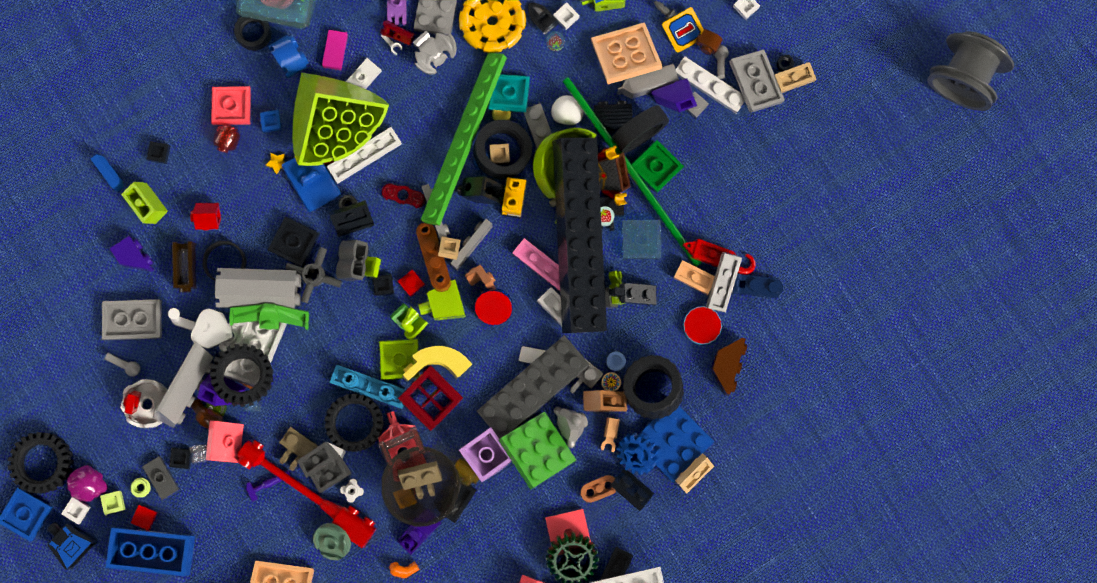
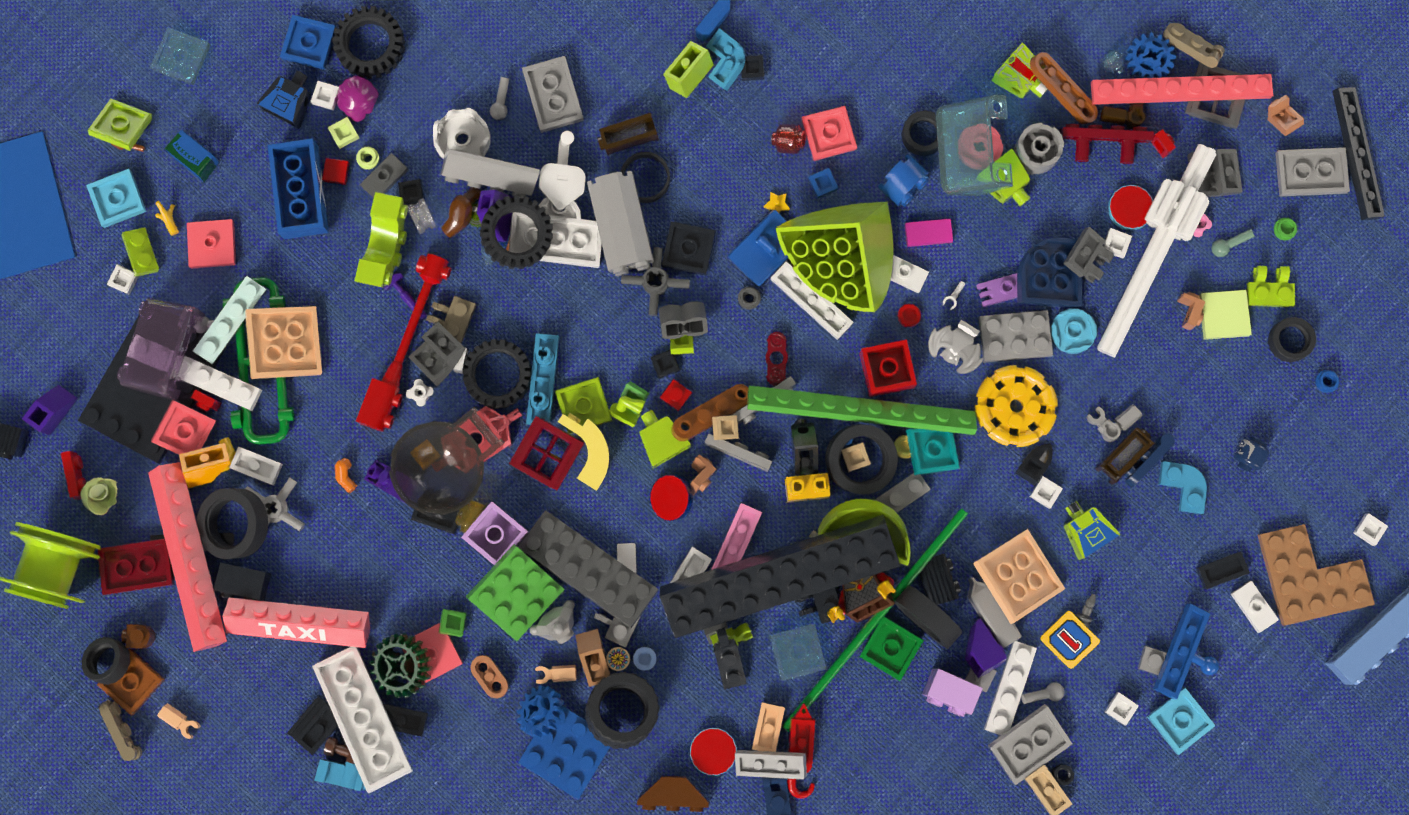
camera: 75 degrees right, 0 degrees up
(130, 255) = (626, 71): dark purple slope -> none
(131, 402) = (457, 120): red plate -> none
(146, 166) = (731, 60): none -> dark azure plate
(206, 216) = (691, 142): red brick -> none
(215, 488) = (385, 241): none -> lime brick
(224, 441) = (439, 234): coral plate -> none
(269, 316) = (593, 244): bright green plate -> none
(332, 541) = (356, 385): sand green tile -> none
(351, 218) = (732, 306): black plate -> none
(397, 83) = (909, 315): none -> red tile
(400, 34) = (968, 299): dark red bar -> none
(420, 475) = (449, 464): dark tan hinge -> none
(436, 109) = (888, 368): none -> red brick
(548, 508) = (452, 622): none -> bright green tile
(555, 41) = (1012, 487): clear light blue tile -> none
(567, 110) = (929, 522): white hair -> none
(607, 216) = (813, 602): tile -> none
(632, 489) = (497, 715): black plate -> none
(694, 473) = (534, 785): tan plate -> none
(702, 127) = (951, 691): none -> lavender brick
(708, 42) = (1062, 673): reddish brown plate -> none

